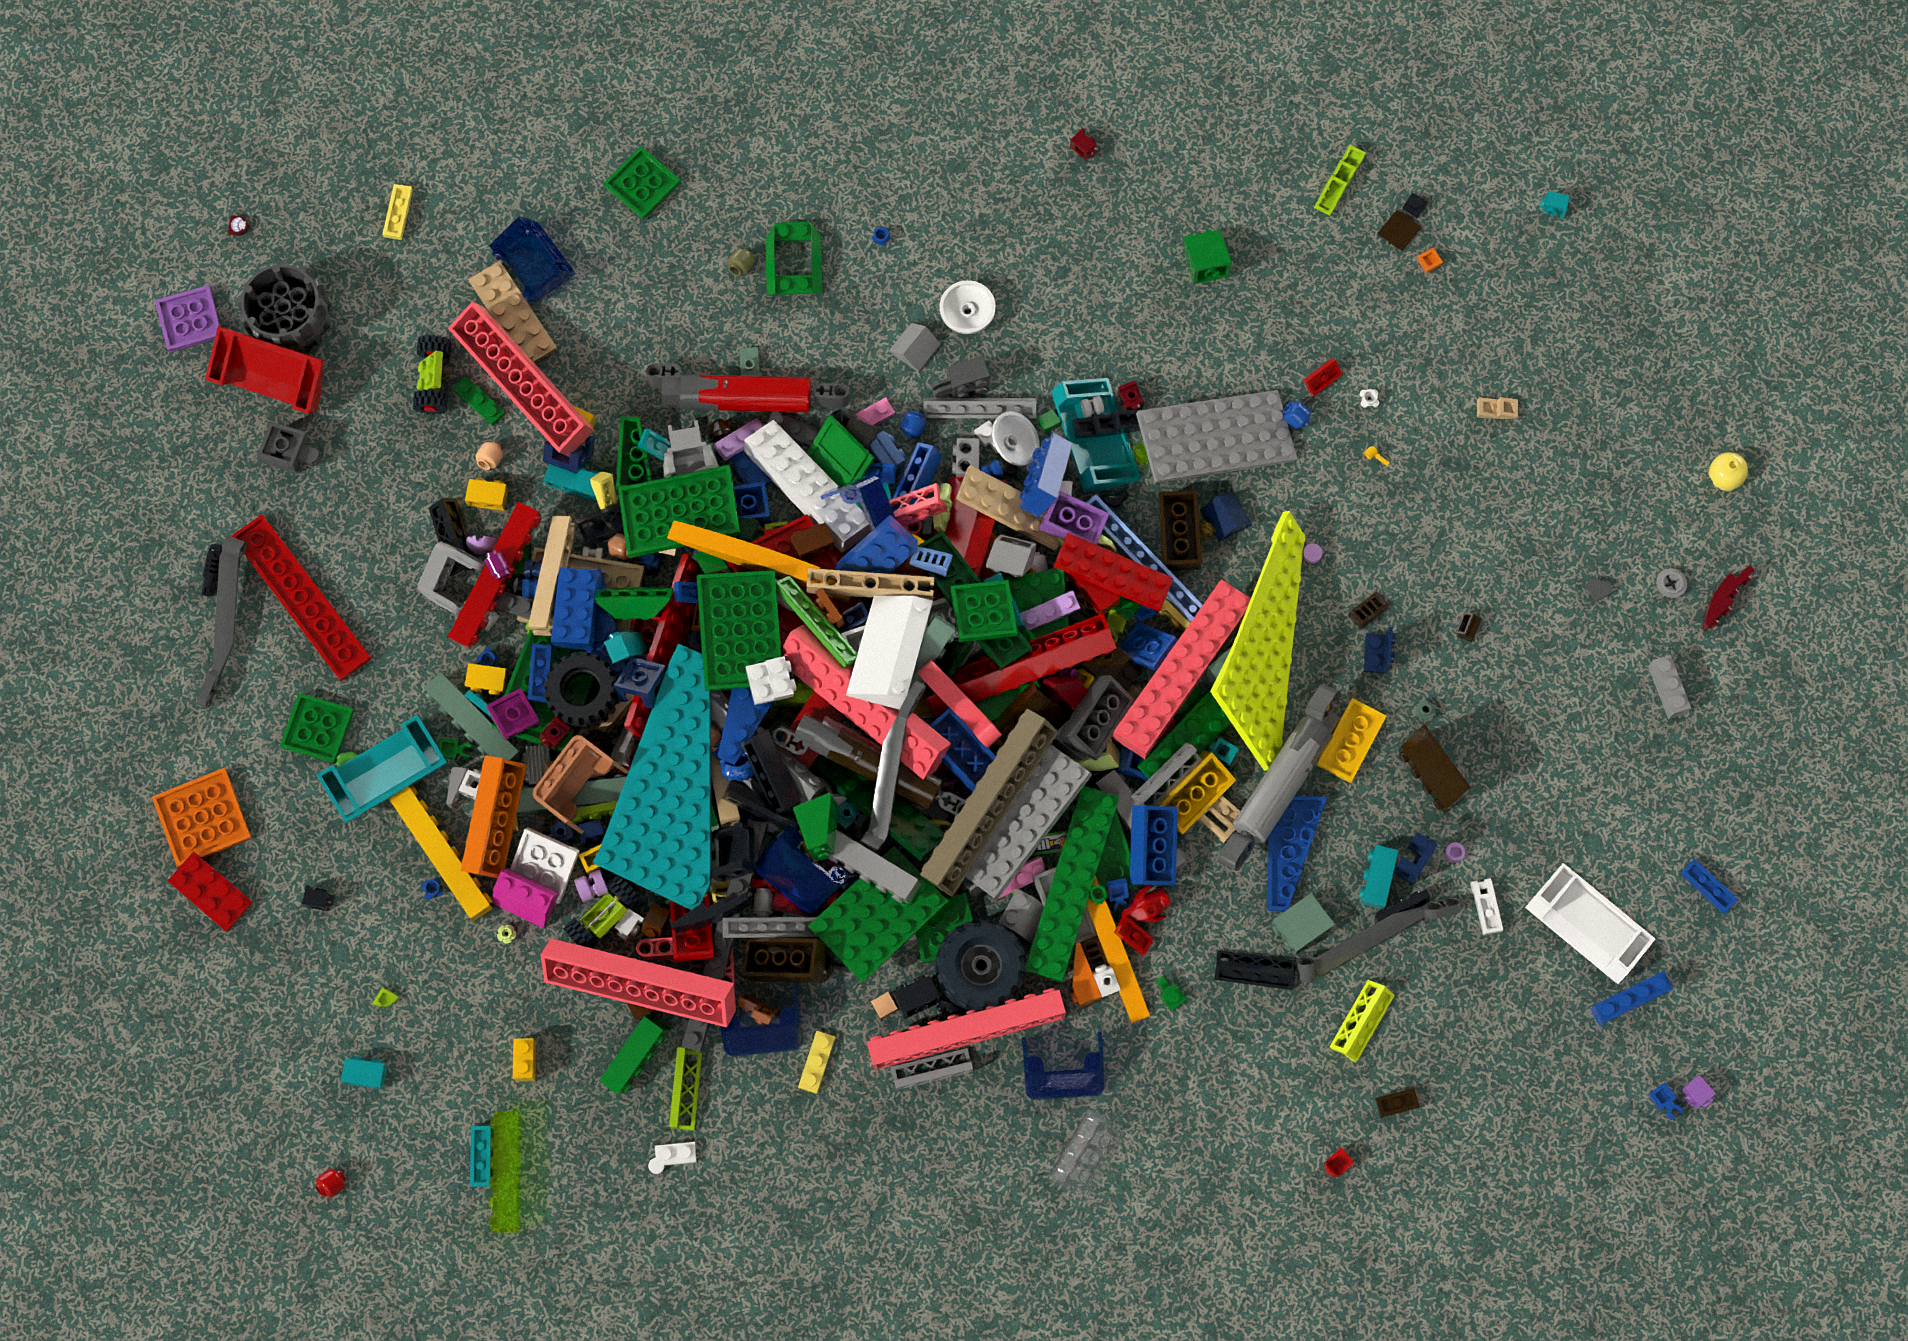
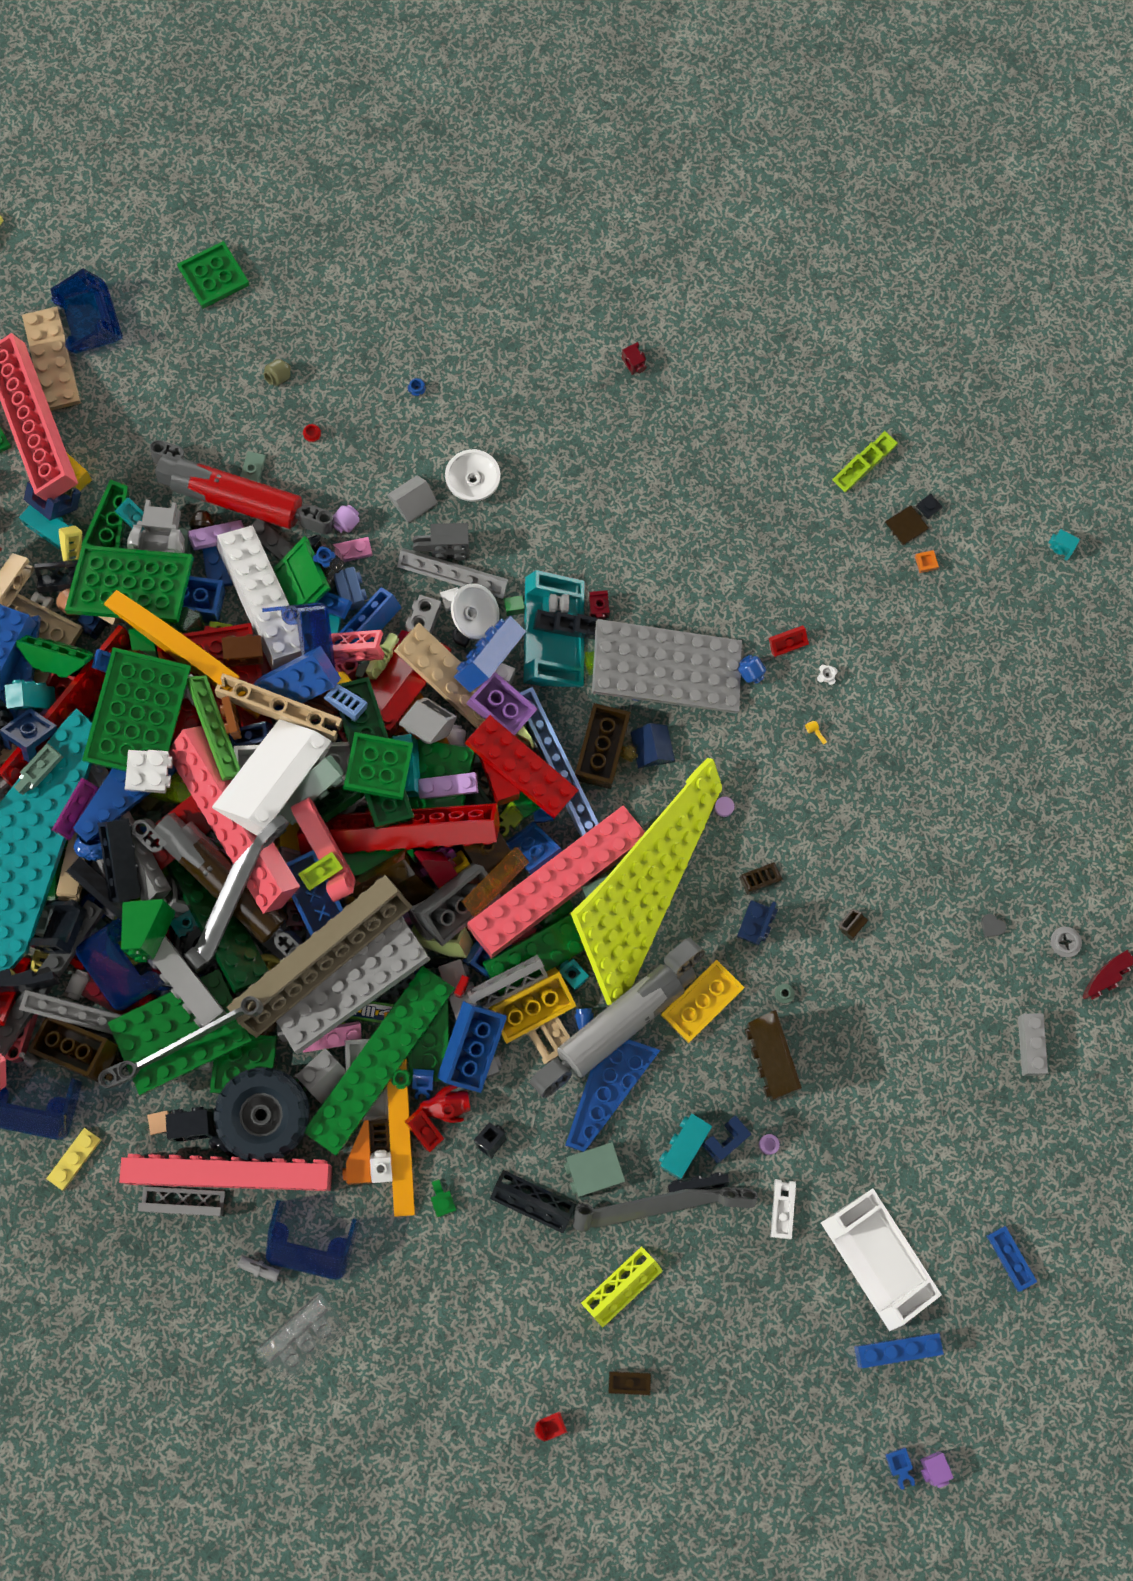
camera: 10 degrees right, 0 degrees up
(664, 710) = (38, 768): none -> sand green hinge
(711, 737) = (74, 808): none -> magenta tile
(743, 985) = (29, 1060): none -> light grey hand
(761, 1011) = (35, 1090): dark orange plate -> none
(794, 283) = (324, 408): green wedge -> none
(795, 312) = (311, 433): none -> red plate
(834, 964) = (117, 1070): none -> dark grey piece
(859, 386) = (345, 519): none -> lavender head
(862, 426) = (323, 551): none -> blue plate
(913, 424) = (384, 569): blue head -> none
(963, 724) = (320, 871): none -> lime plate
(993, 469) = (447, 635): blue wheel -> none
(1023, 1107) = (258, 1268): none -> light grey pin
(1115, 501) = (551, 699): black arm -> none
(1125, 793) = (461, 987): none -> red tile
(1126, 686) = (495, 881): none -> clear orange tile
(1177, 620) = (571, 830): light yellow plate -> none
(1195, 919) = (483, 1139): none -> black brick
(1207, 256) = (715, 495): green slope -> none
(1246, 788) = (583, 1016): none -> blue cone
(1498, 409) = (950, 722): tan slope -> none

